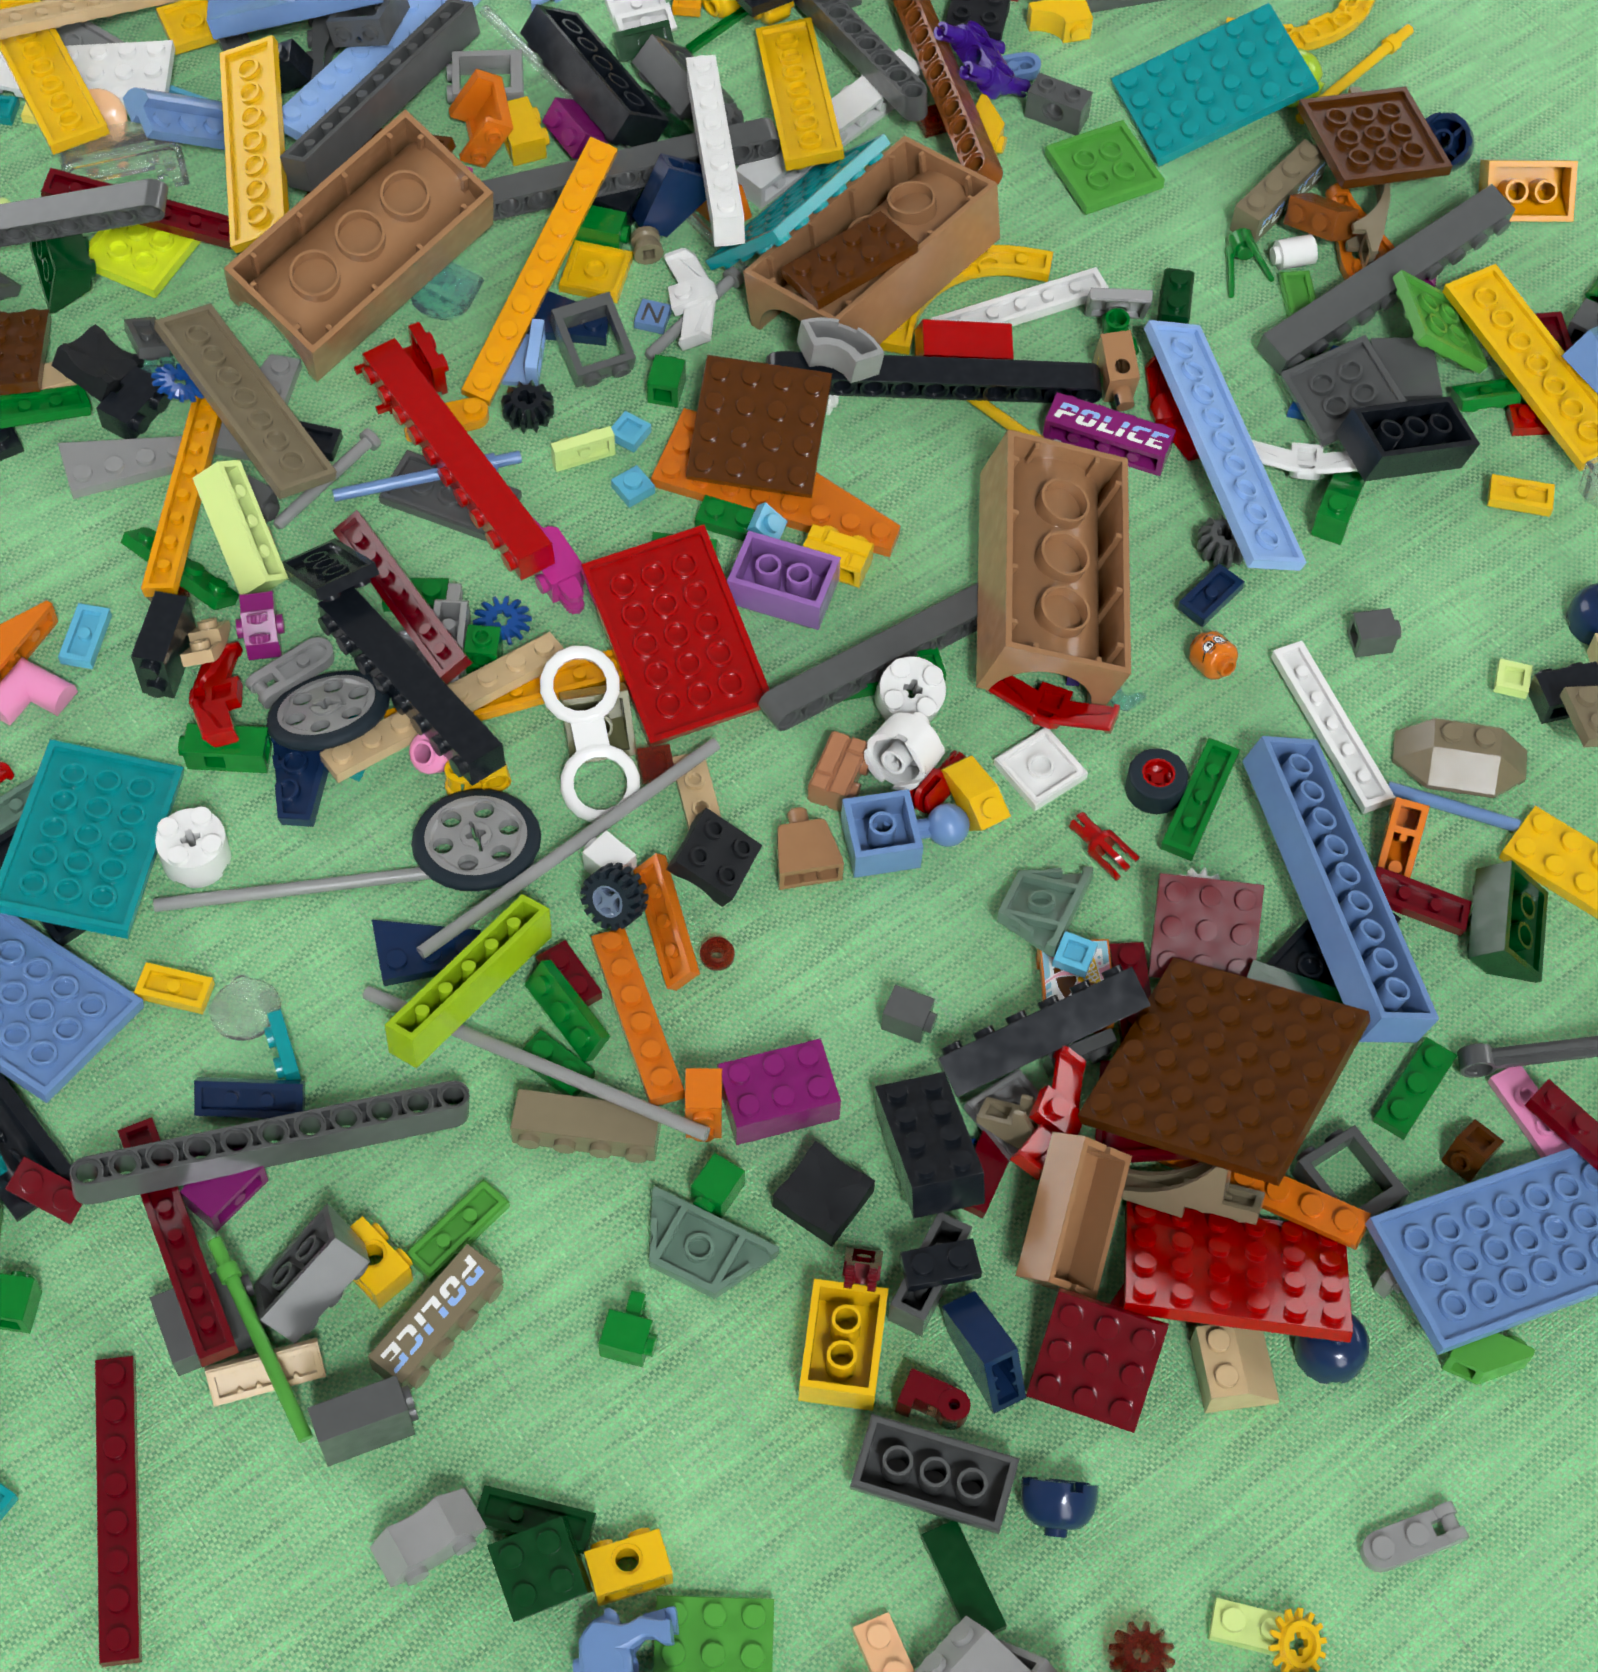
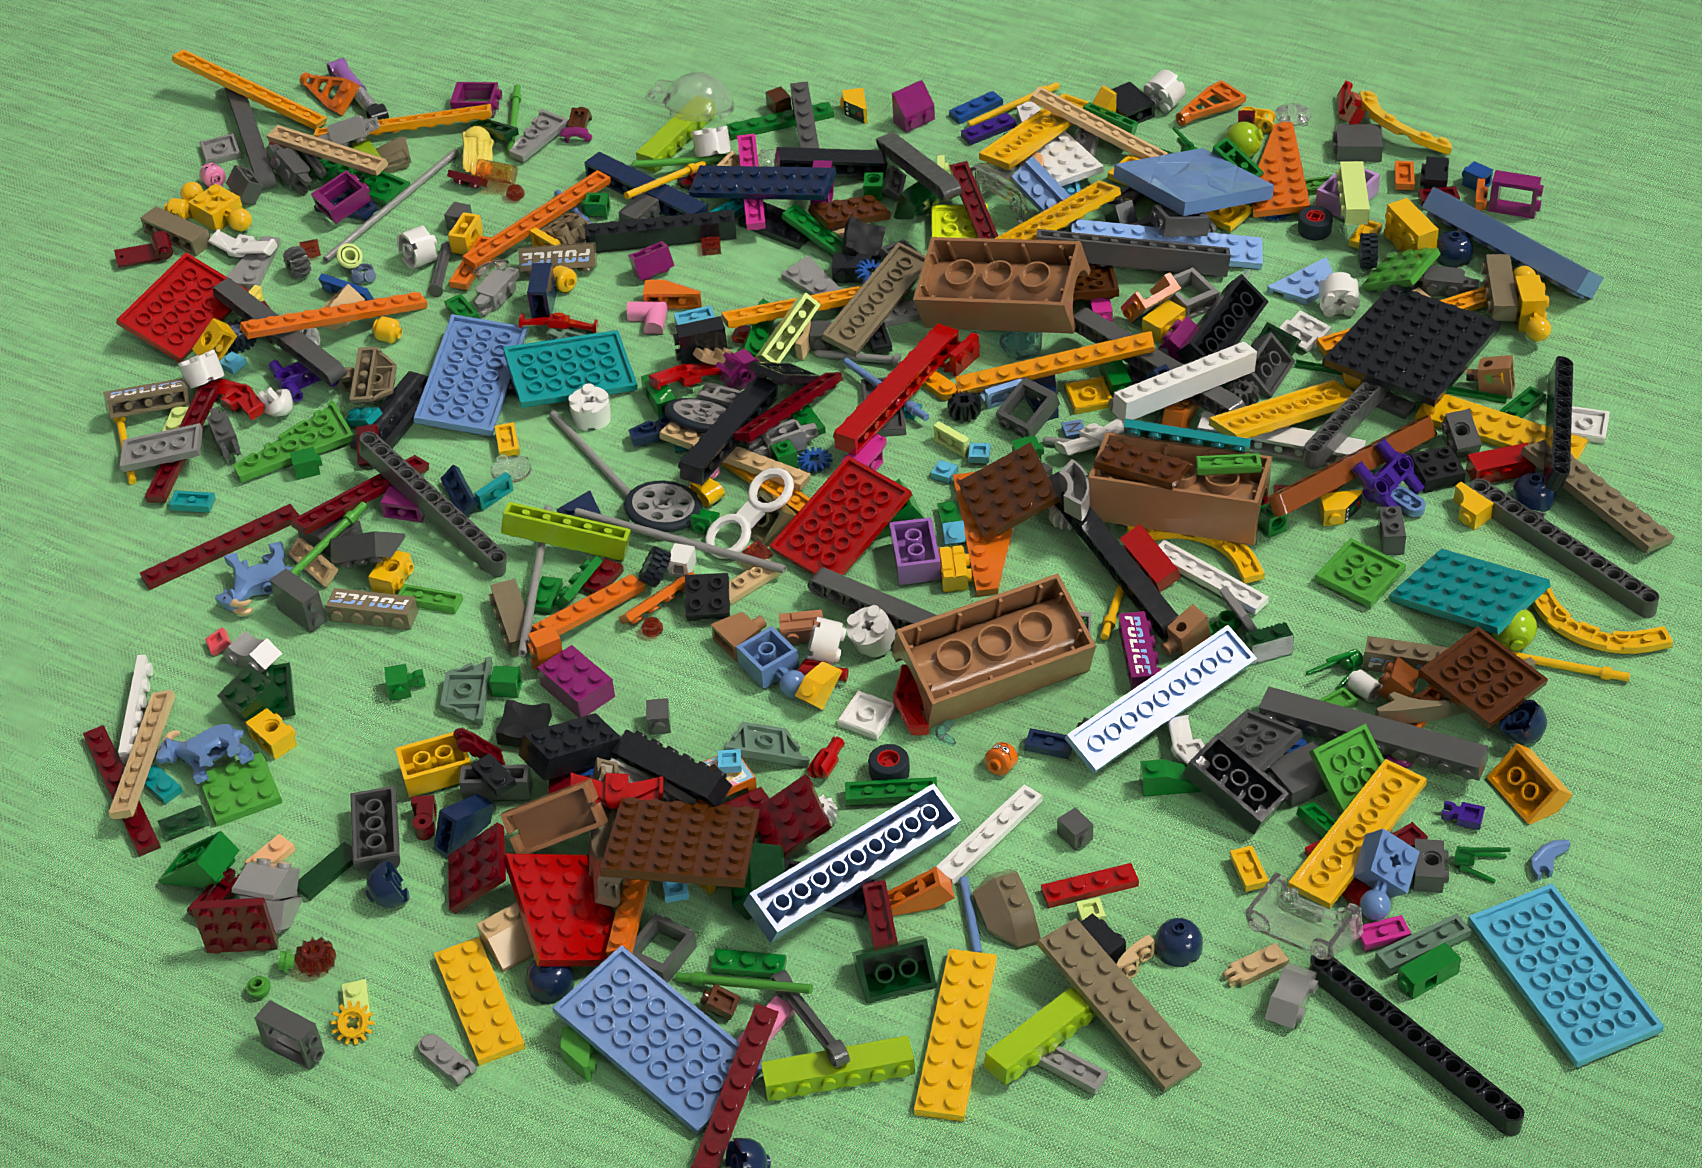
camera: 70 degrees right, 15 degrees down
(252, 1474) = (251, 580): none -> medium blue animal
(356, 1584) = (218, 641): none -> coral tile
(542, 800) = (702, 522): none -> green bracket
(900, 179) = (1228, 464): none -> bright green tile
(1322, 1454) = (479, 1001): none -> yellow plate
(1420, 1154) = (700, 979): none -> bright green bar
(1463, 662) = (1089, 885): none -> red plate
(1539, 262) = (1467, 815): none -> dark purple plate

